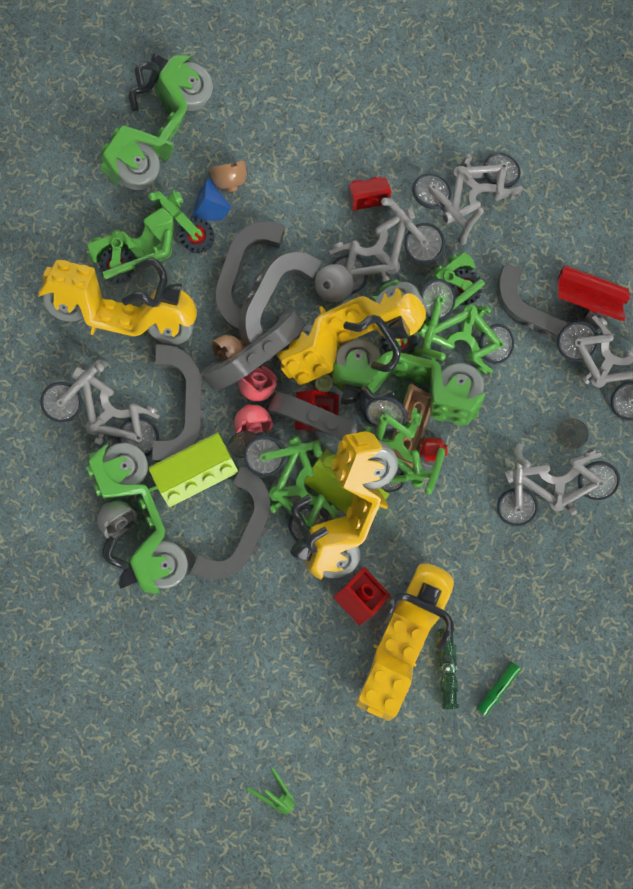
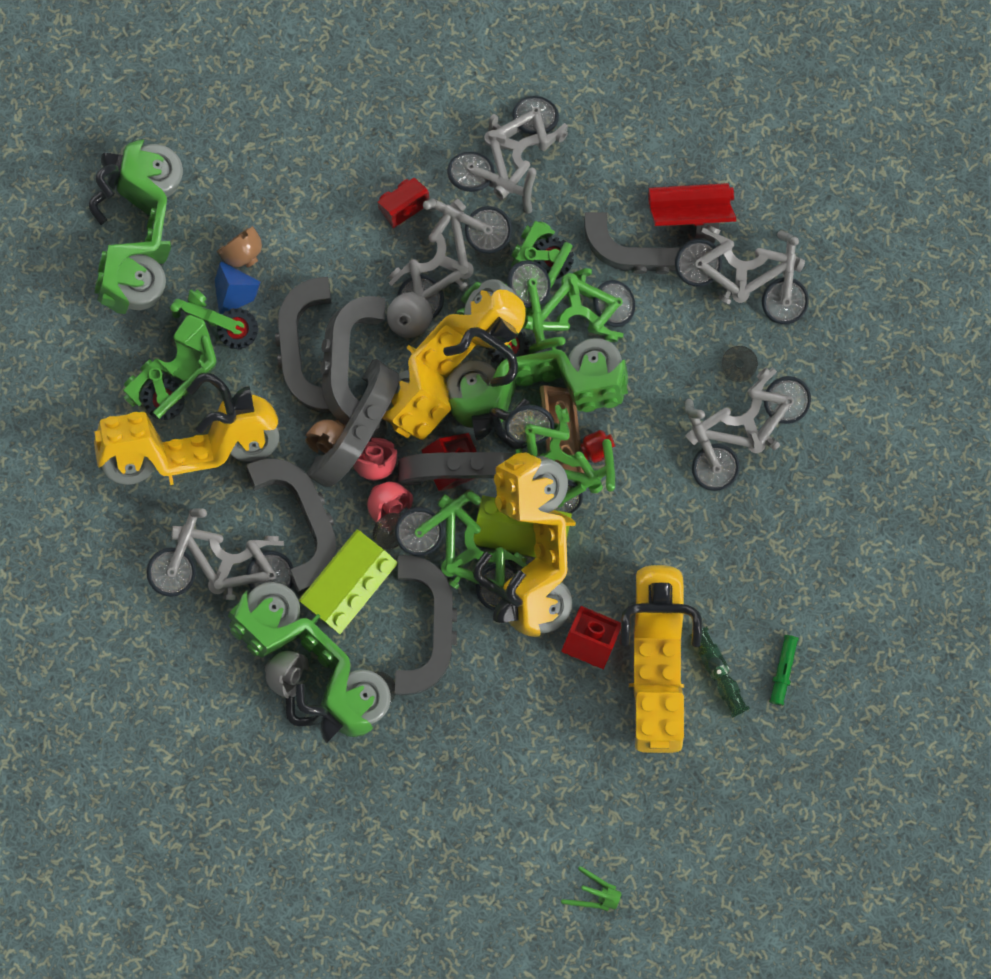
camera: 25 degrees left, 5 degrees down
(324, 383) = (447, 427): yellowish green tile -> none

